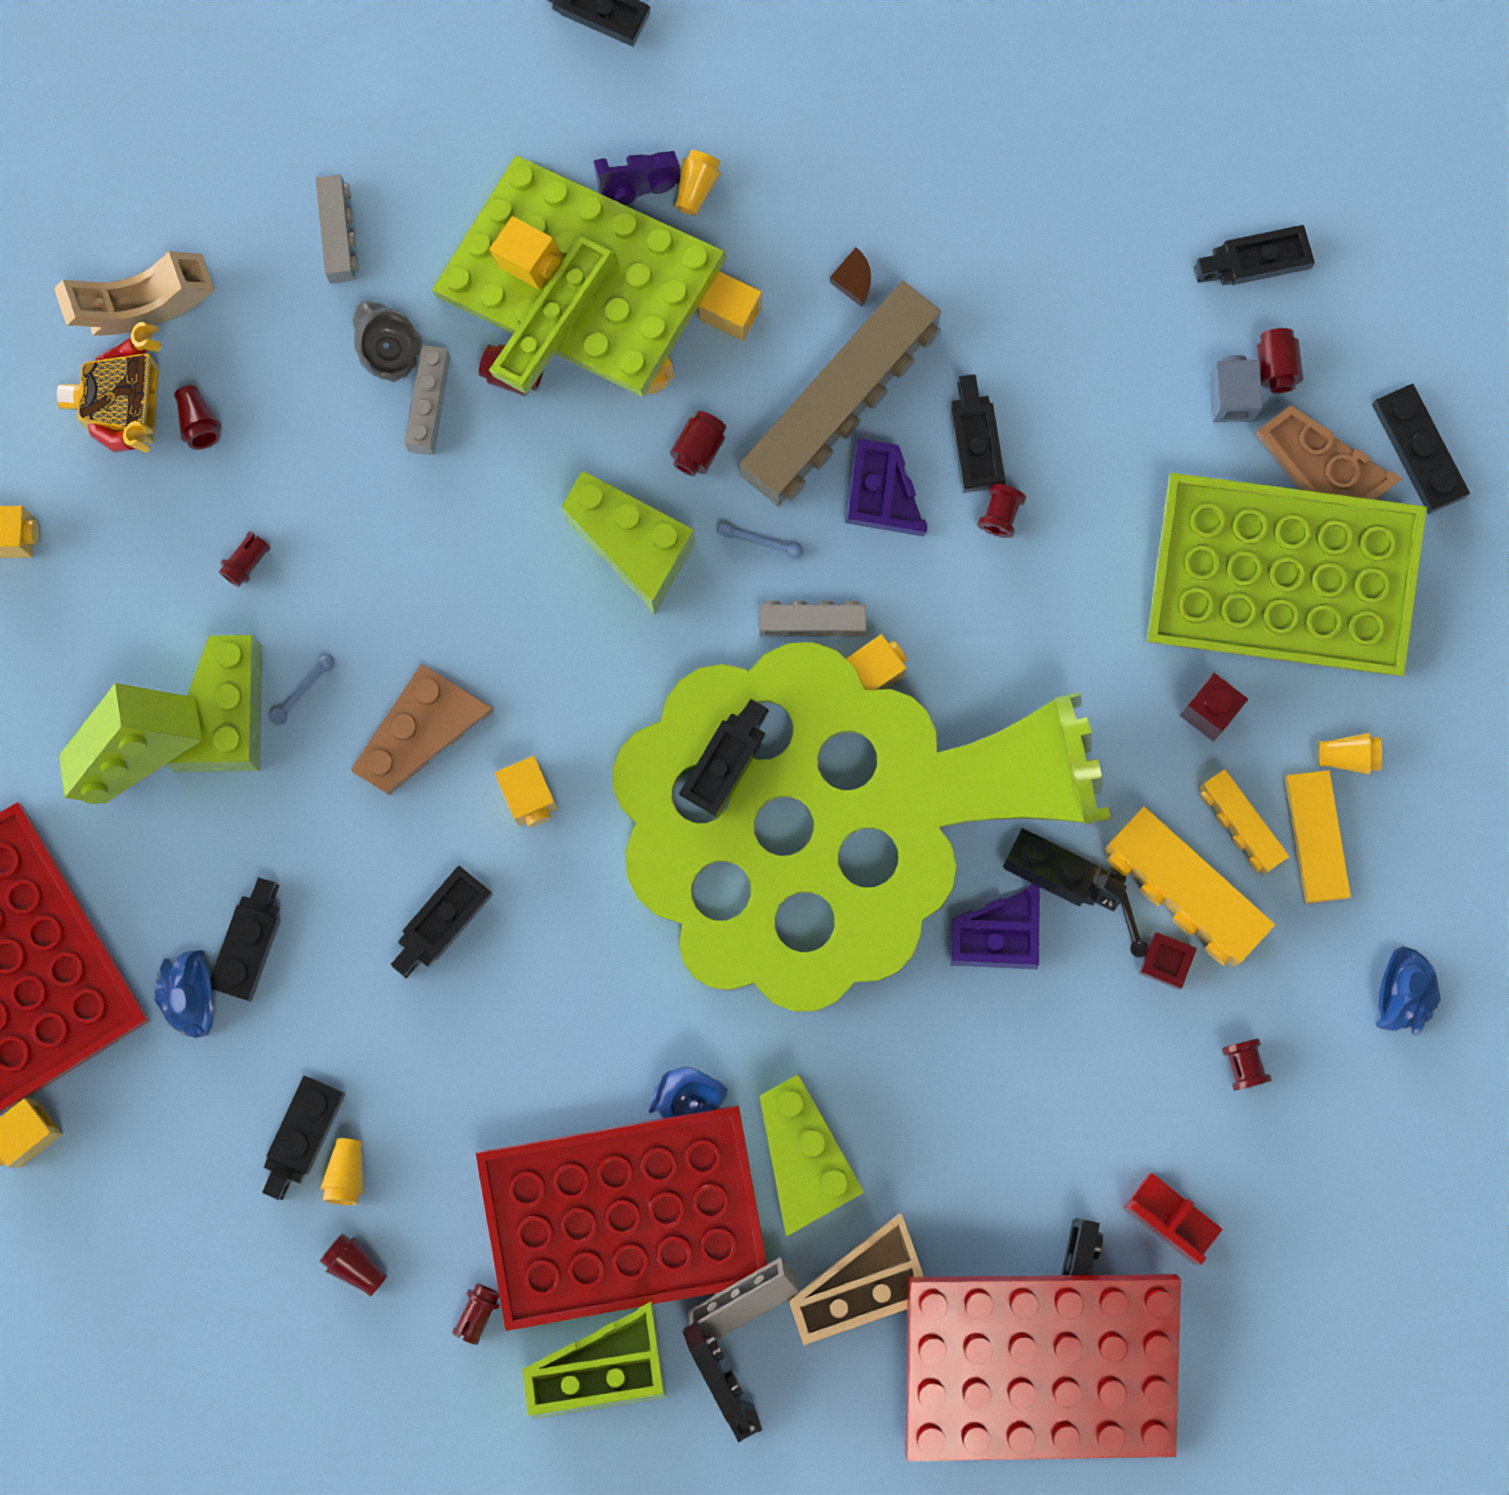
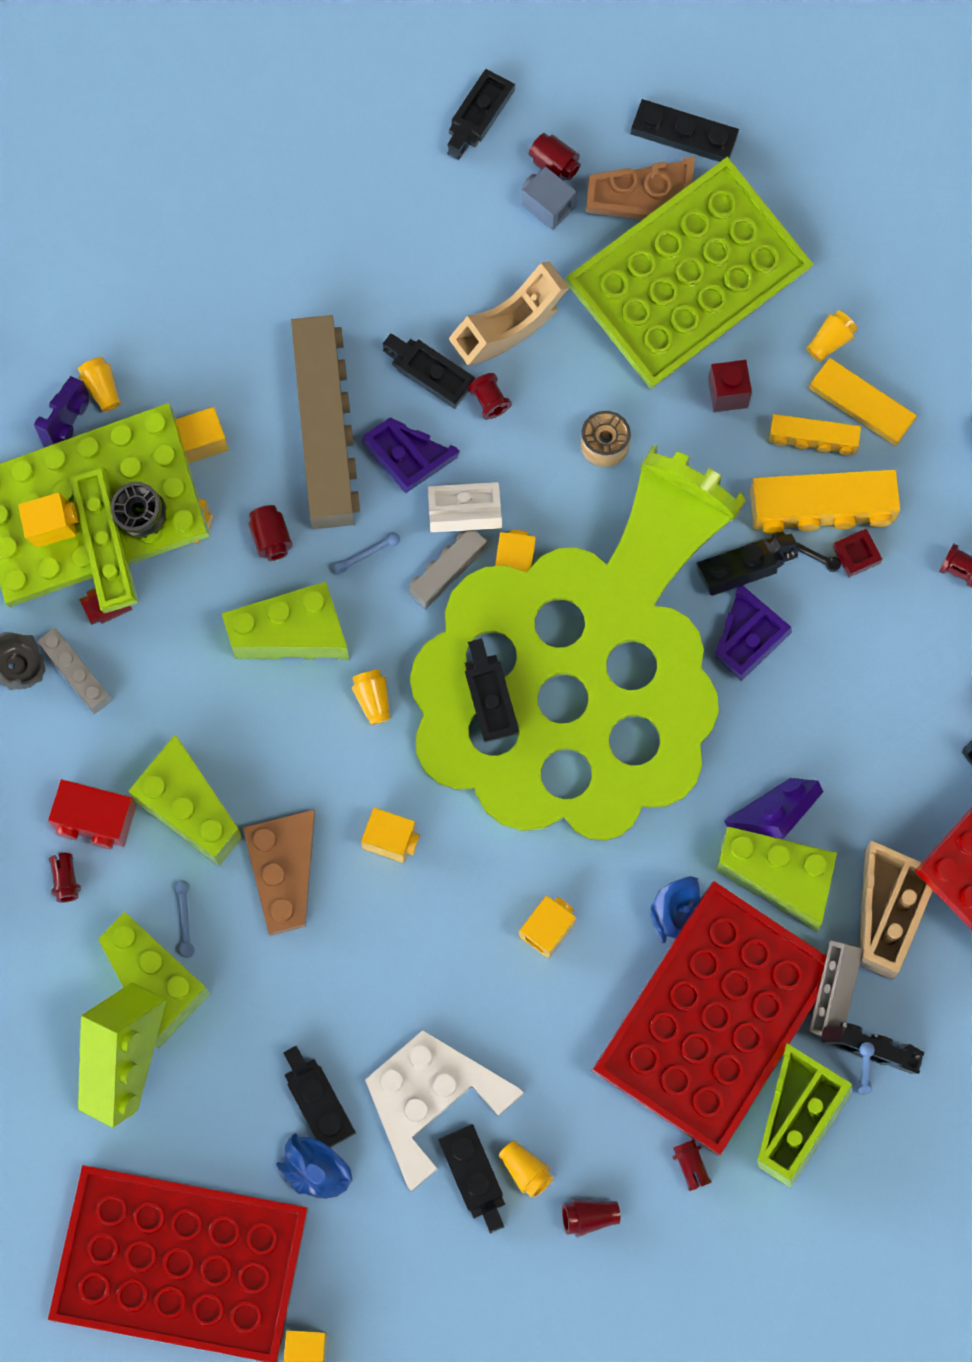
camera: 50 degrees left, 5 degrees down
(317, 530) = (91, 814): none -> red brick
(338, 1018) = (420, 1086): none -> white wing
(397, 596) = (185, 802): none -> lime wedge
(440, 921) = (420, 963): black hinge -> none
(572, 998) = (548, 925): none -> yellow brick
(588, 311) = (141, 496): none -> black wheel
(636, 663) = (372, 695): none -> yellow cone
(703, 1381) = (864, 1085): none -> medium blue hinge
(853, 277) = (255, 348): reddish brown tile -> none
(858, 1103) = (778, 809): none -> dark purple wing
(878, 583) = (464, 507): none -> white plate
(1074, 636) = (606, 425): none -> tan wheel
(1087, 465) = (506, 325): none -> tan arch

